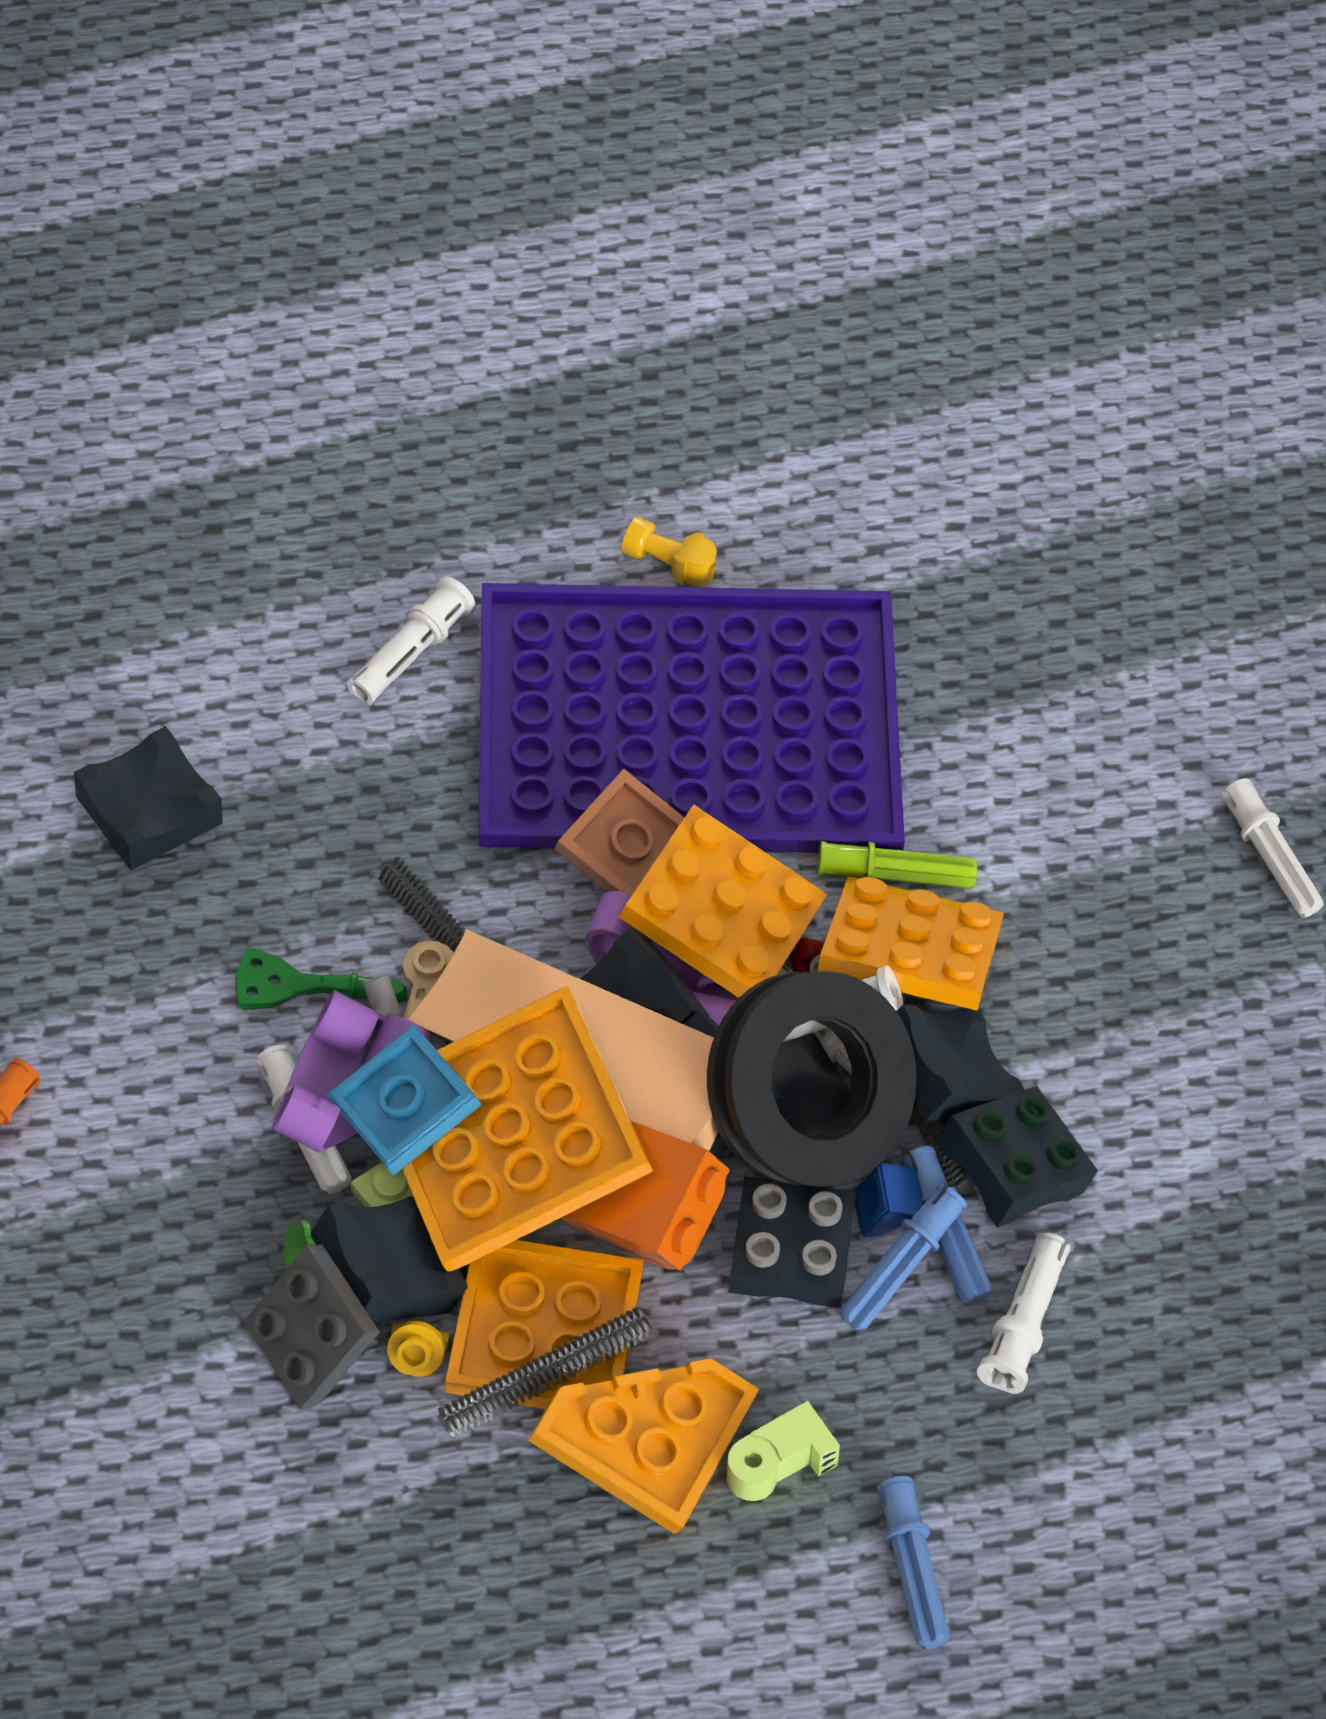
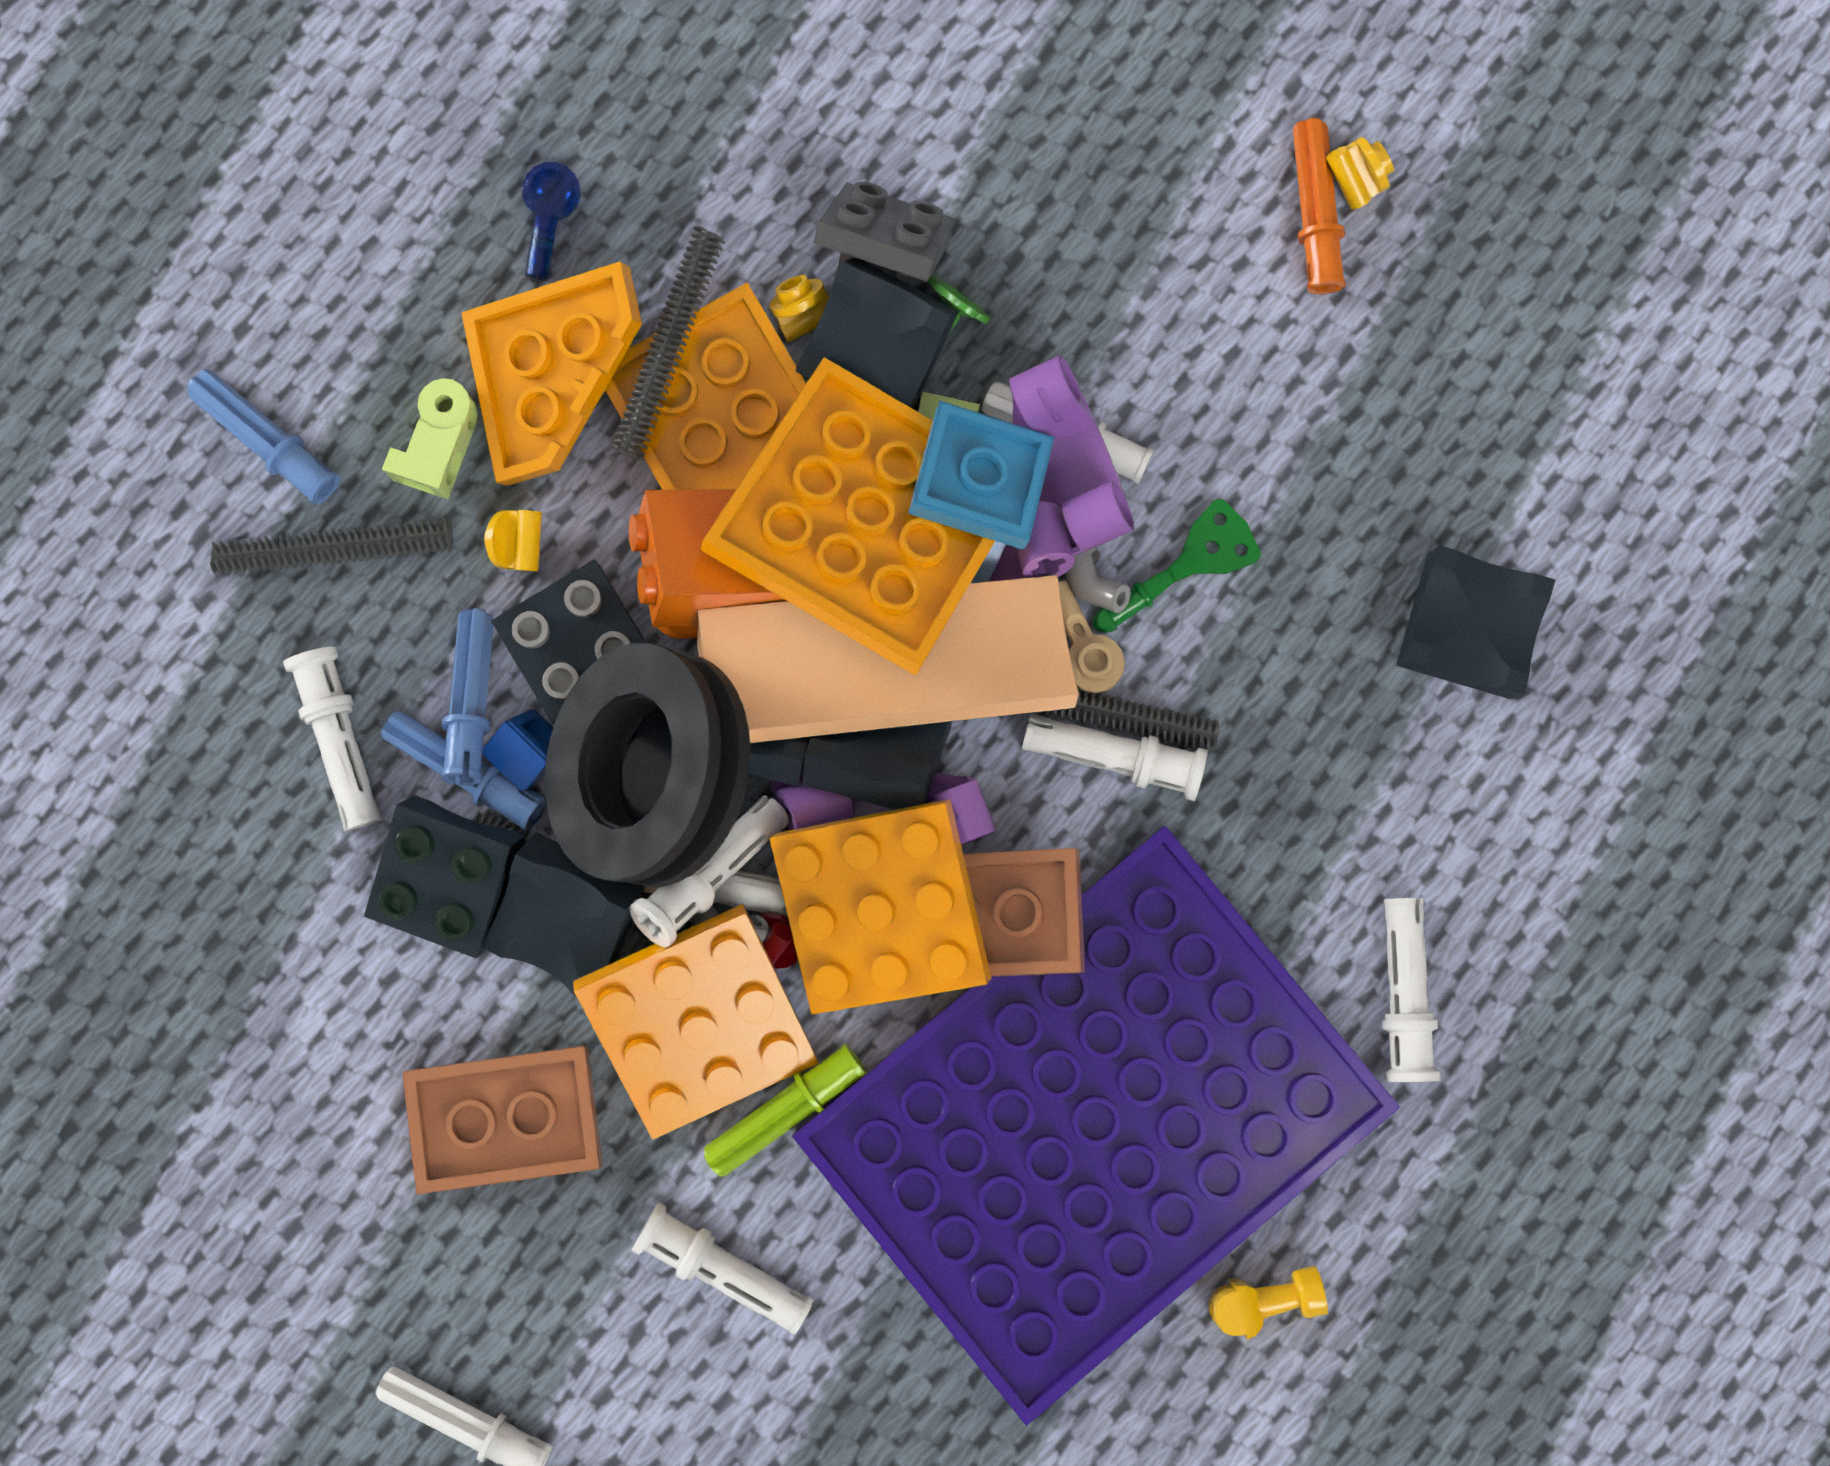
camera: 140 degrees right, 30 degrees up
(455, 885) = (1142, 760): none -> white pin
(537, 1567) = (551, 195): none -> clear blue plate
(777, 1339) = (514, 539): none -> yellow plate
(923, 1448) = (331, 547): none -> dark grey axle
(1029, 826) = (697, 1256): none -> white pin
(1100, 995) = (502, 1119): none -> nougat plate

